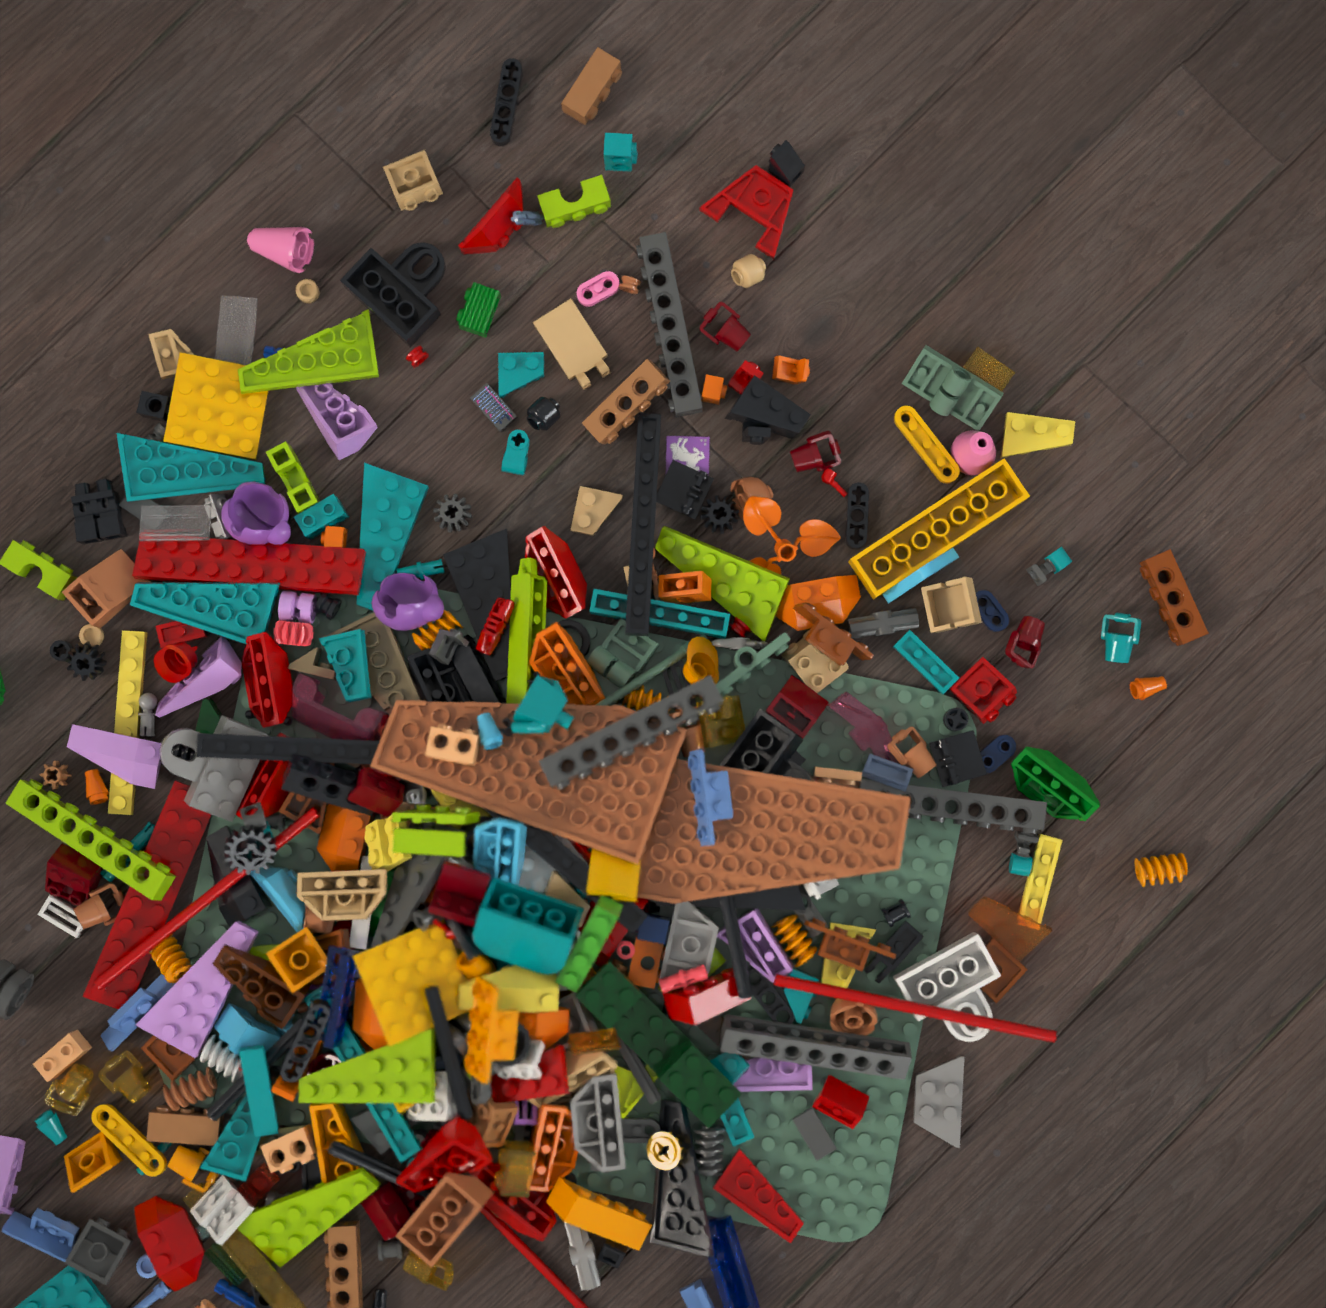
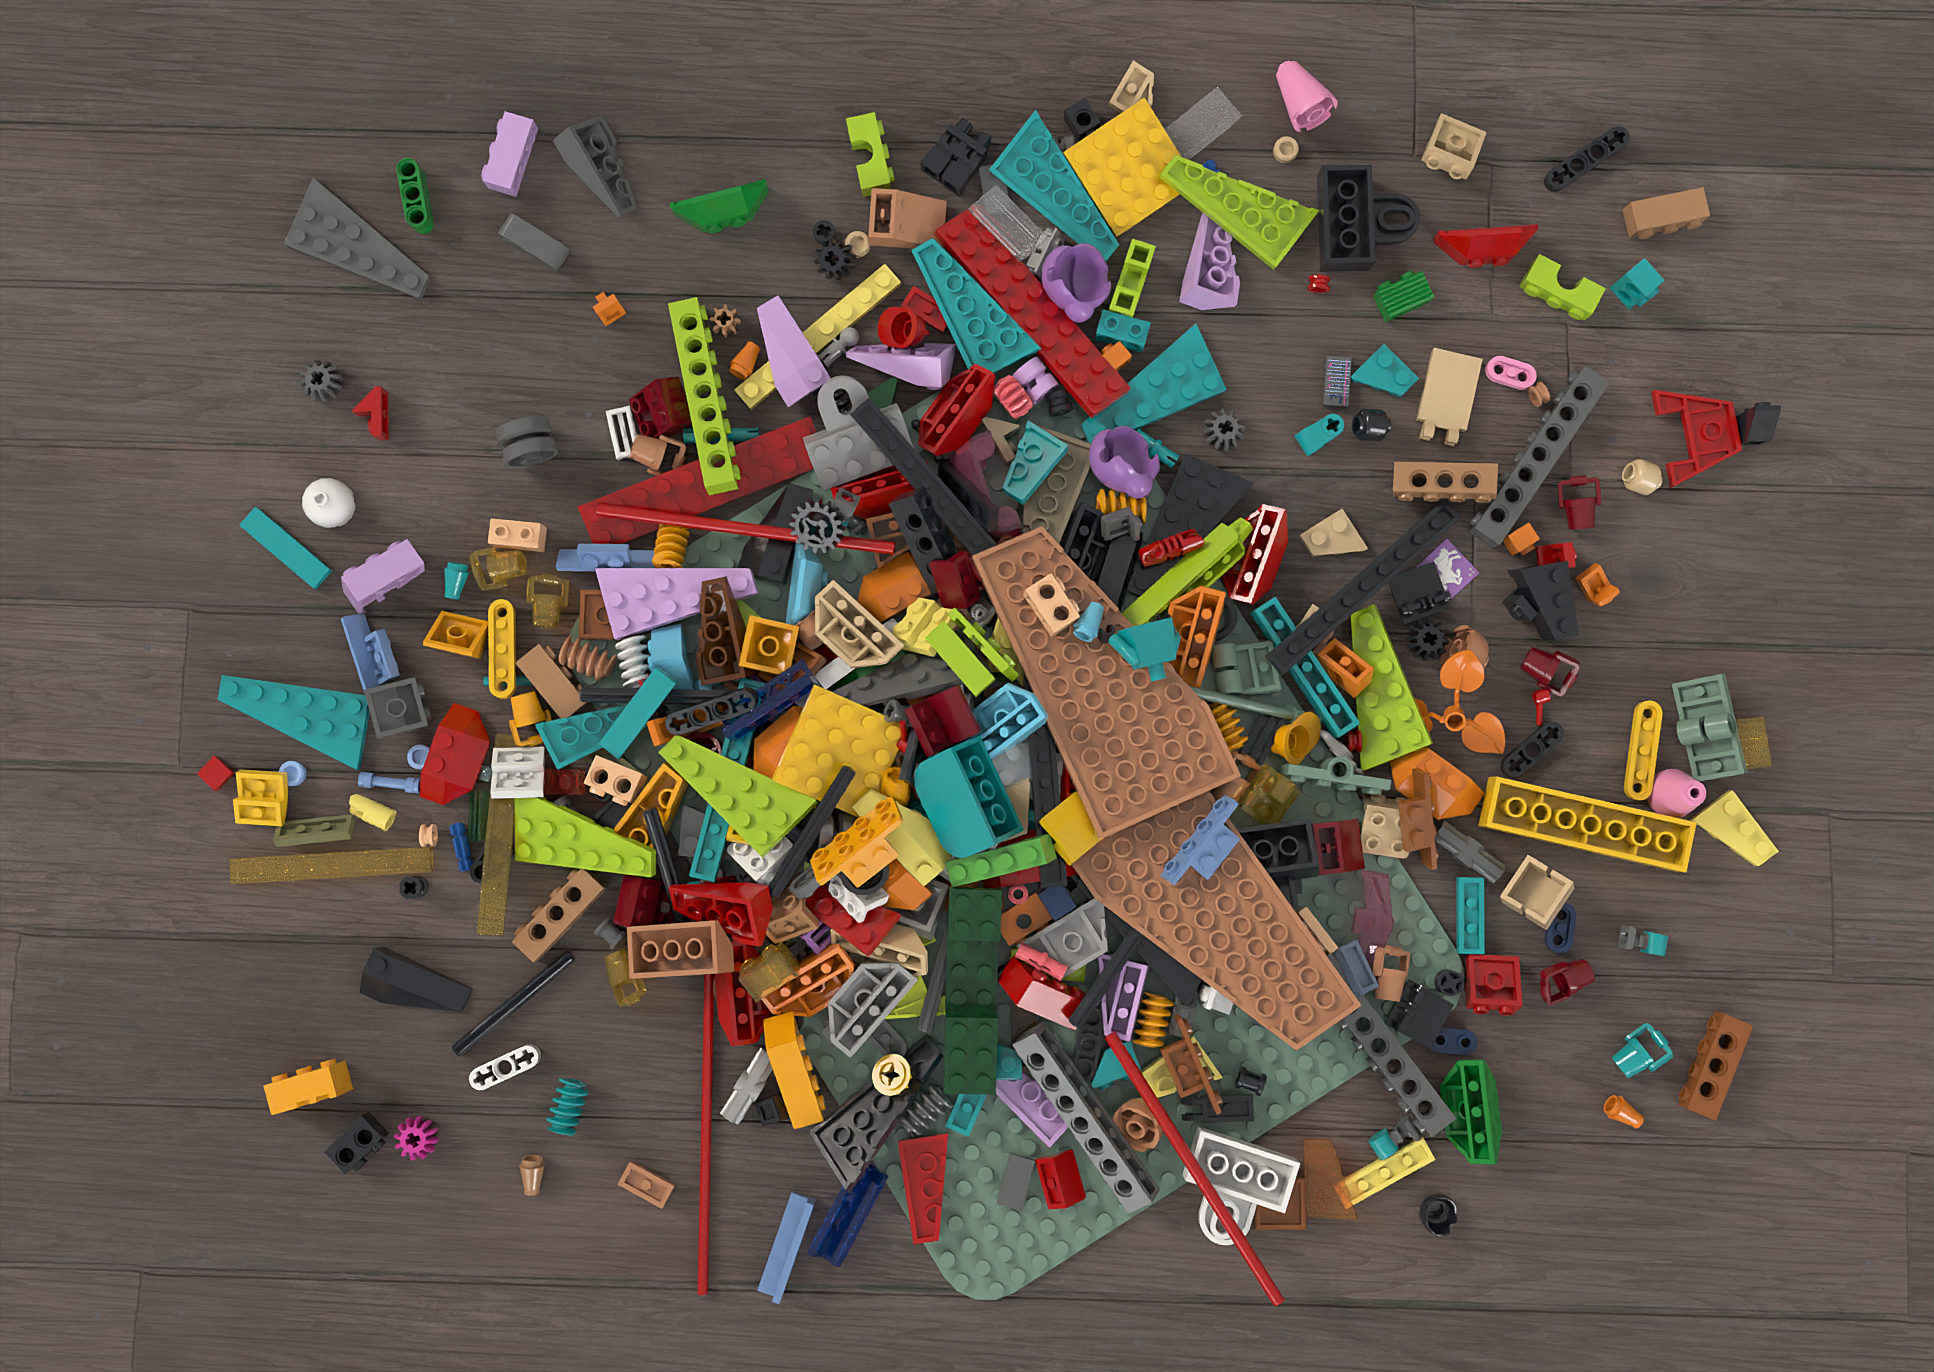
camera: 45 degrees right, 0 degrees up
(328, 728) = (969, 495): none -> black tile
(527, 218) = (1513, 263): sand blue axle -> none
(593, 1041) = (926, 937): clear orange slope -> none
(681, 699) = (1287, 759): dark grey brick -> none
(920, 575) = (1535, 844): medium azure beam -> none
(940, 1100) = (1136, 1257): light grey wing -> none
(1099, 873) = (1438, 1214): none -> black hair
(1161, 868) = (1489, 1260): light orange piece -> none

